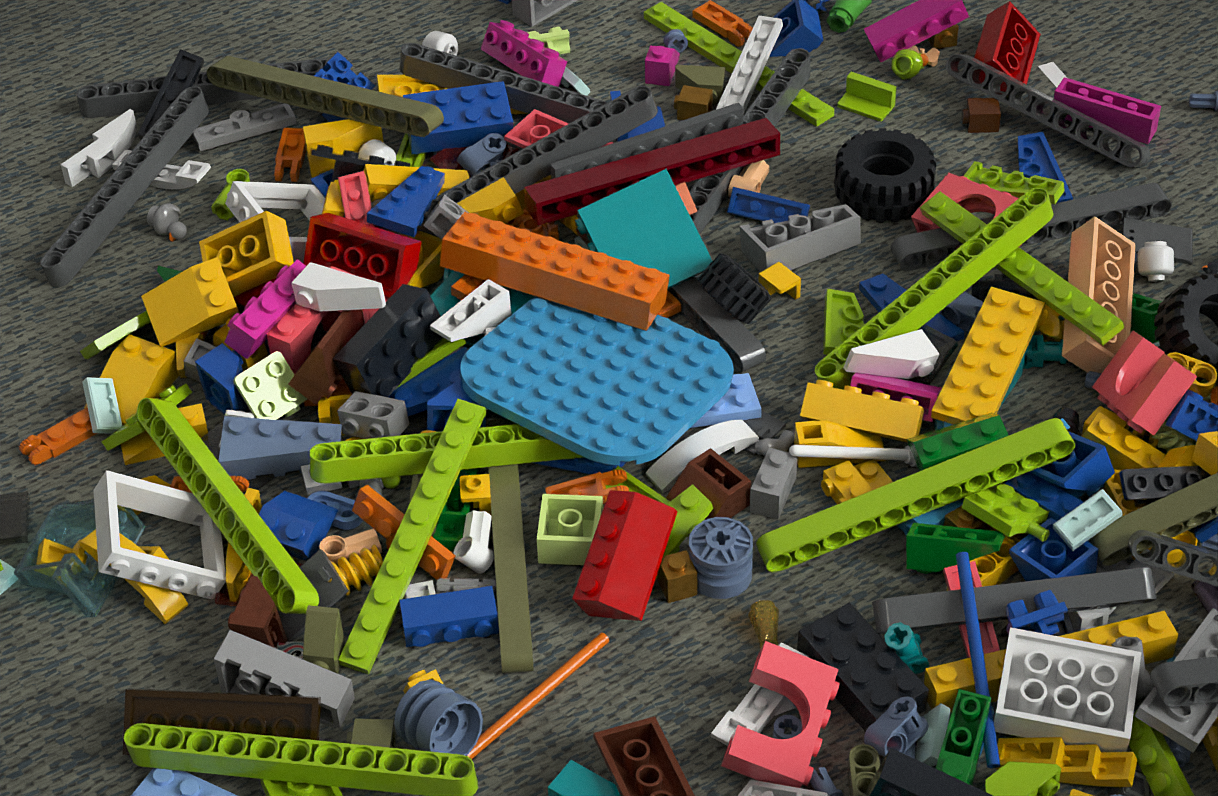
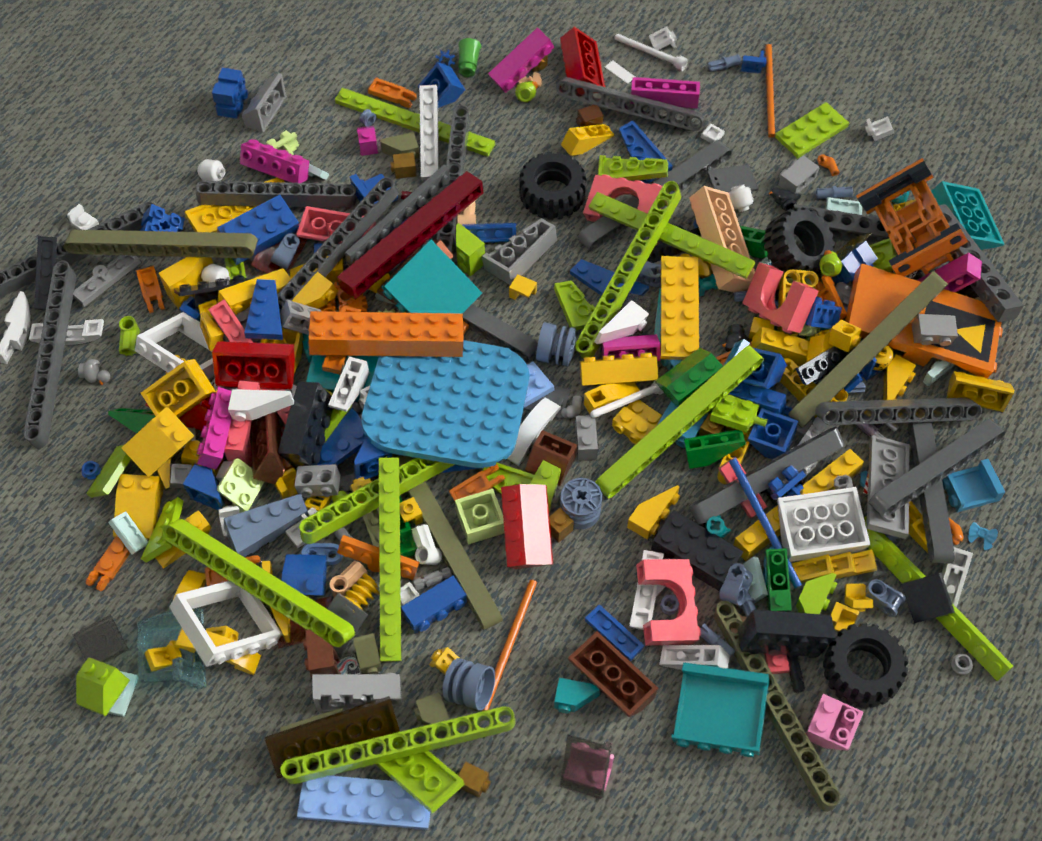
camera: 25 degrees left, 15 degrees up
(100, 325) = (90, 465): none -> blue plate
(250, 51) = (81, 219): none -> white bracket
(685, 738) = (614, 632): none -> blue plate
(723, 217) = (469, 251): none -> lime slope
(734, 288) = (501, 305): black tyre -> none
(765, 619) = (624, 537): clear yellow cone -> none
(787, 356) = (556, 344): none -> sand blue wheel
(815, 600) = (649, 513): none -> yellow slope
(868, 97) = (511, 125): lime panel -> none
(959, 136) = (582, 139): none -> yellow slope
(1087, 519) = (787, 405): light aqua plate -> none
(1136, 50) = (663, 38): none -> white bracket
(1148, 85) = (679, 62): none -> white piece
(1156, 175) = (712, 133): none -> white tile

